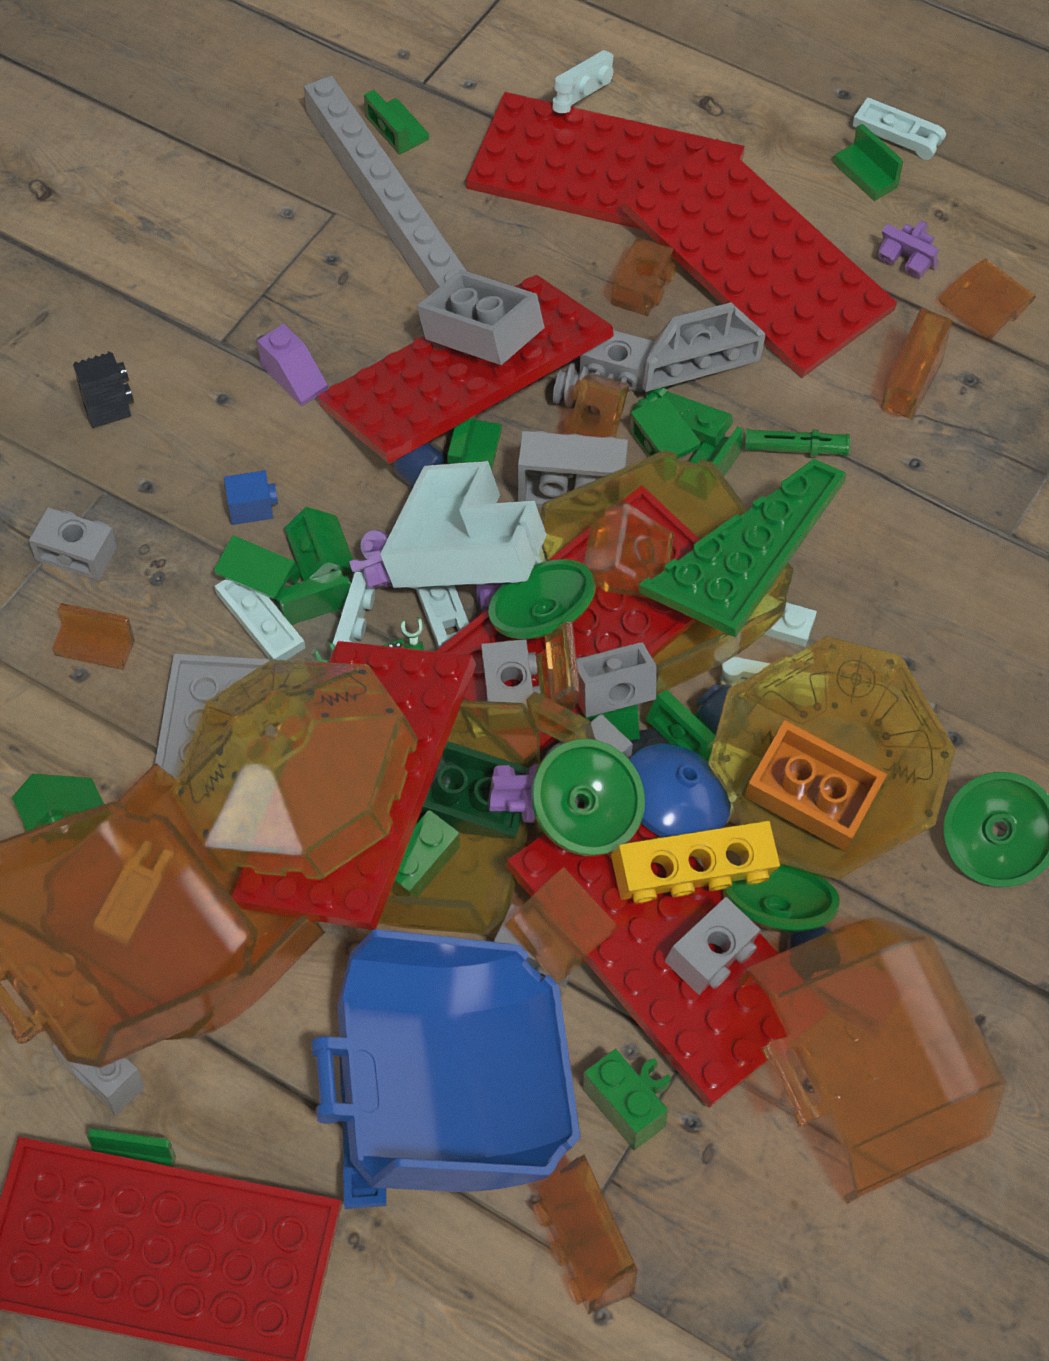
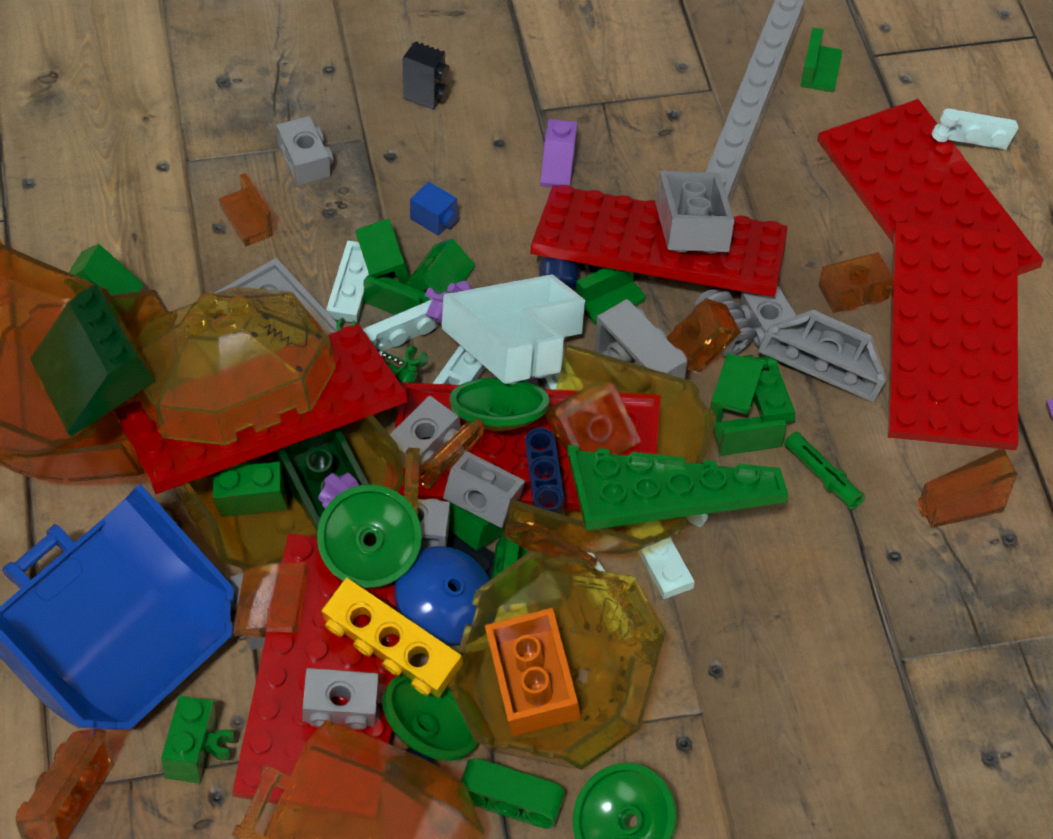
camera: 45 degrees right, 5 degrees down
(185, 874) = (89, 361): none -> dark green slope
(637, 612) = (544, 463): none -> dark blue beam
(707, 676) = (541, 539): none -> clear orange slope
(899, 891) = (513, 793): none -> green beam

